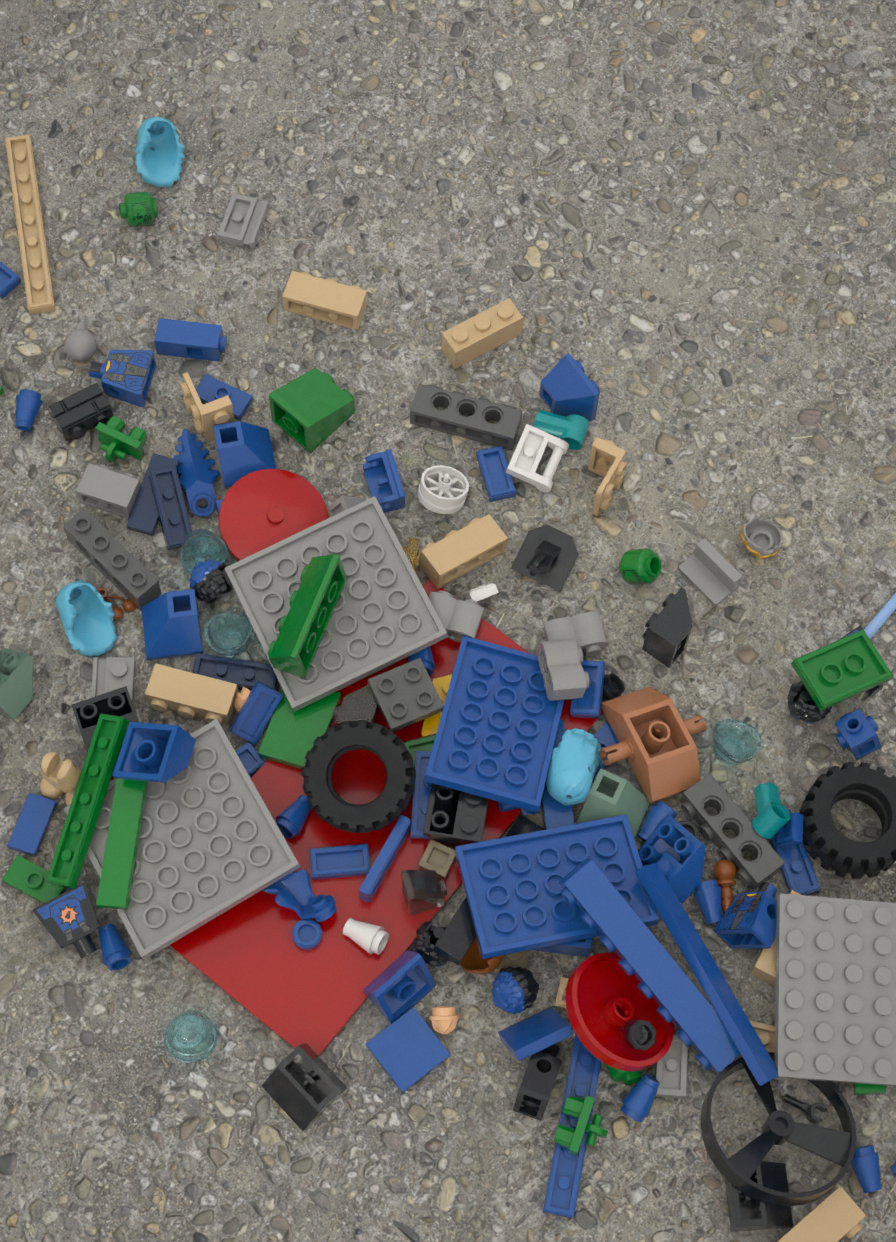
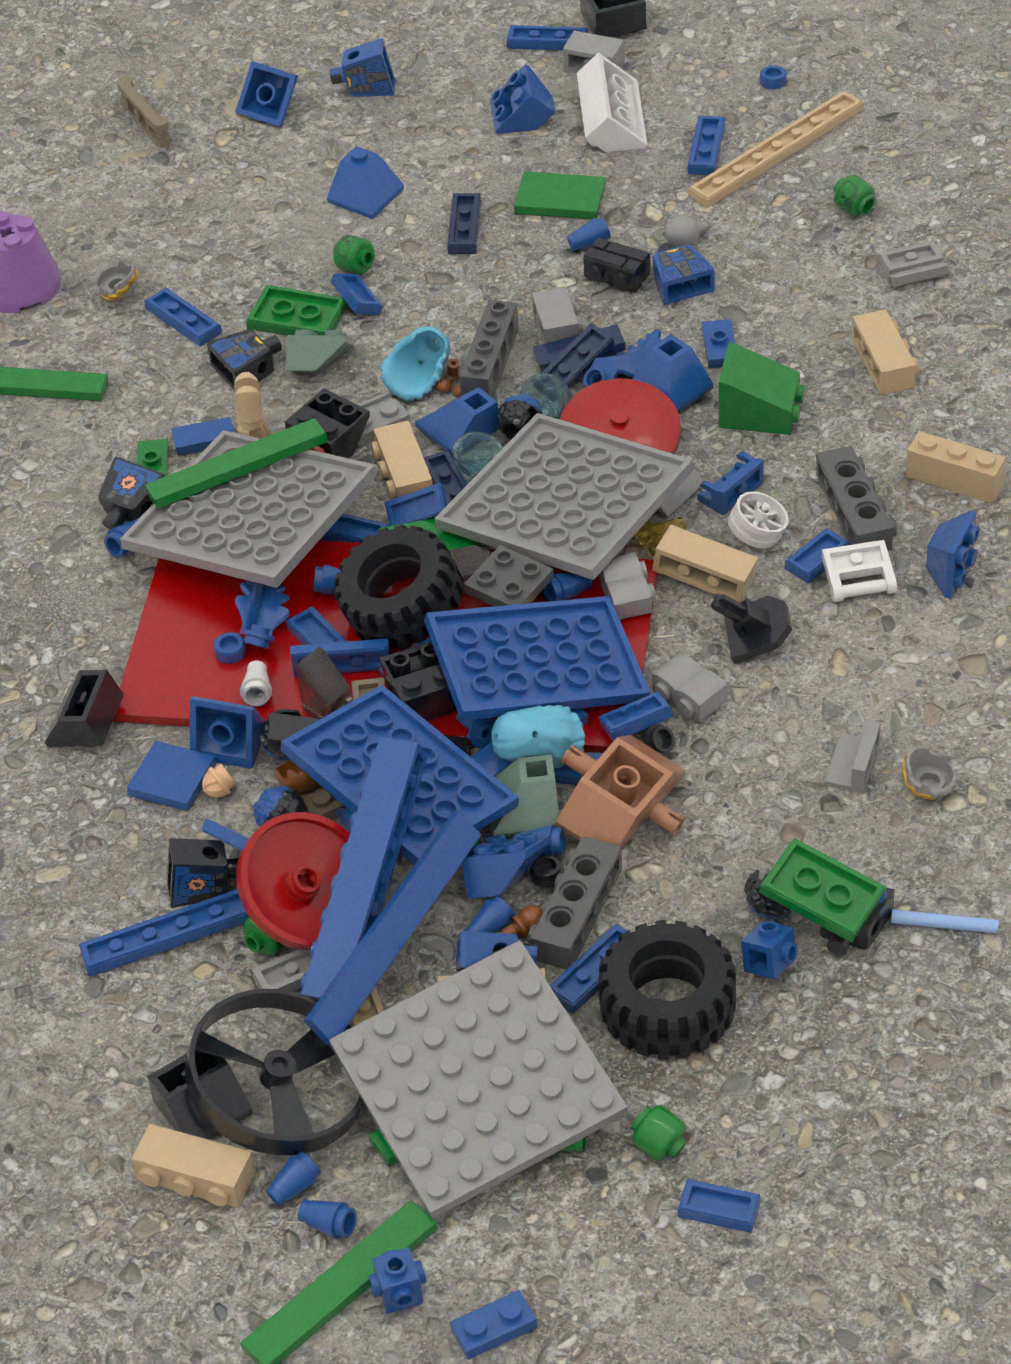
camera: 65 degrees right, 20 degrees down
(87, 801) = (236, 432): green tile -> none
(118, 444) = (614, 300): green hips -> none
(153, 752) = (306, 435): blue slope -> none
(159, 152) = (922, 175): medium azure piece -> none
(190, 339) = (754, 290): blue brick -> none
(190, 1036) = (81, 625): clear light blue helmet -> none
(208, 414) = (686, 319): tan bracket -> none
(308, 615) = (526, 471): green slope -> none
(481, 592) = (674, 599): white tile -> none
(562, 669) = (630, 675): light grey brick -> none
(569, 428) = (911, 577): teal piece -> none
(581, 1110) = (174, 917): green hips -> none
(608, 462) = (878, 622): tan bracket -> none
(640, 566) = (817, 695): green head -> none
(640, 1034) = (287, 898): black tile -> none
(640, 1098) = (237, 959): blue cone -> none
(670, 630) = (756, 743): black slope -> none
(735, 742) = (673, 853): clear light blue helmet -> none
(770, 811) = (618, 913): teal piece -> none
(791, 832) = (603, 939): blue tile -> none
(808, 1109) = (325, 1103): black hand -> none

